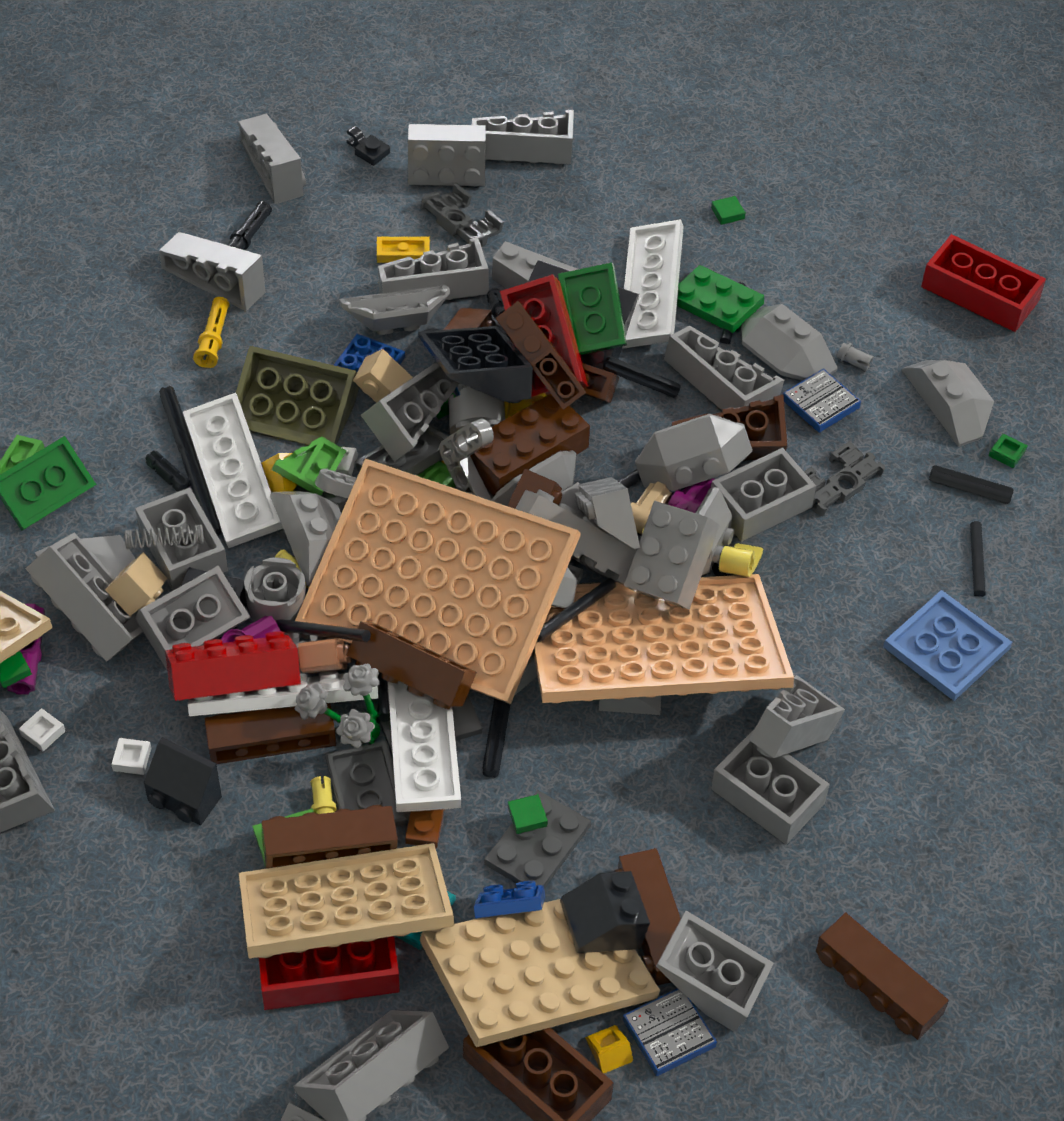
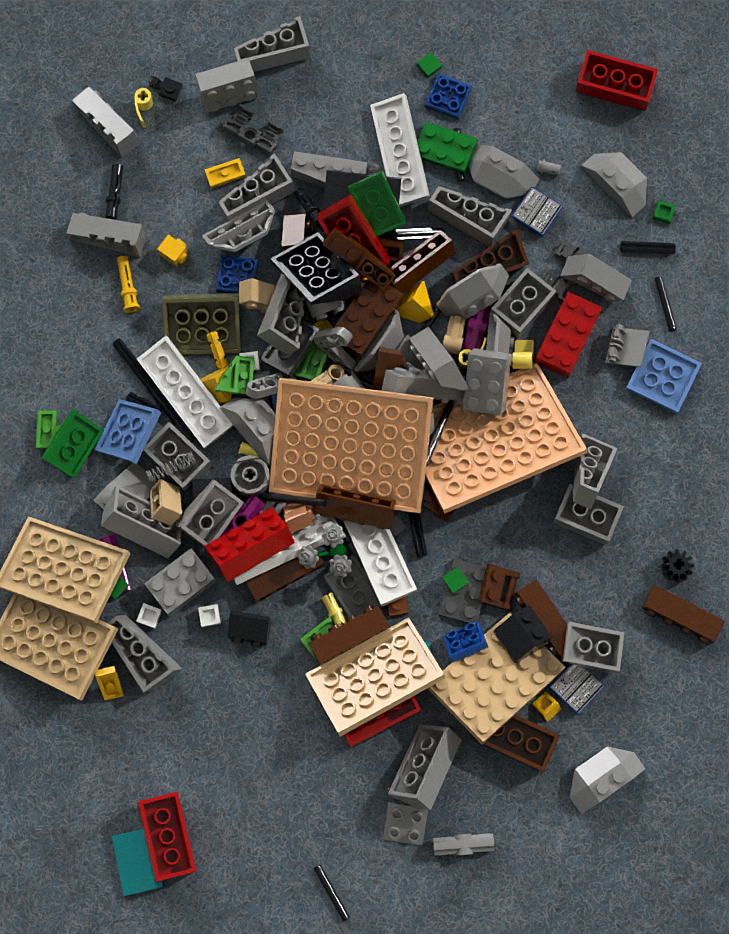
camera: 15 degrees left, 25 degrees up
(109, 697) = (180, 582): none -> light grey brick
(127, 486) = (127, 431): none -> medium blue plate
(292, 310) = (173, 250): none -> yellow brick
(299, 427) = (217, 349): none -> yellow axle
(329, 150) = (143, 105): none -> light yellow panel
(543, 717) = (431, 503): none -> reddish brown plate
(587, 839) = (493, 585): none -> reddish brown plate
(605, 457) = (416, 304): none -> yellow slope
(632, 408) = (422, 261): none -> reddish brown brick
(741, 248) = (448, 96): none -> blue tile
(816, 552) = (568, 335): none -> red brick
(880, 905) = (671, 560): none -> black gear
(883, 489) = (596, 276): none -> light grey wedge
(900, 589) = (627, 346): none -> light grey hinge

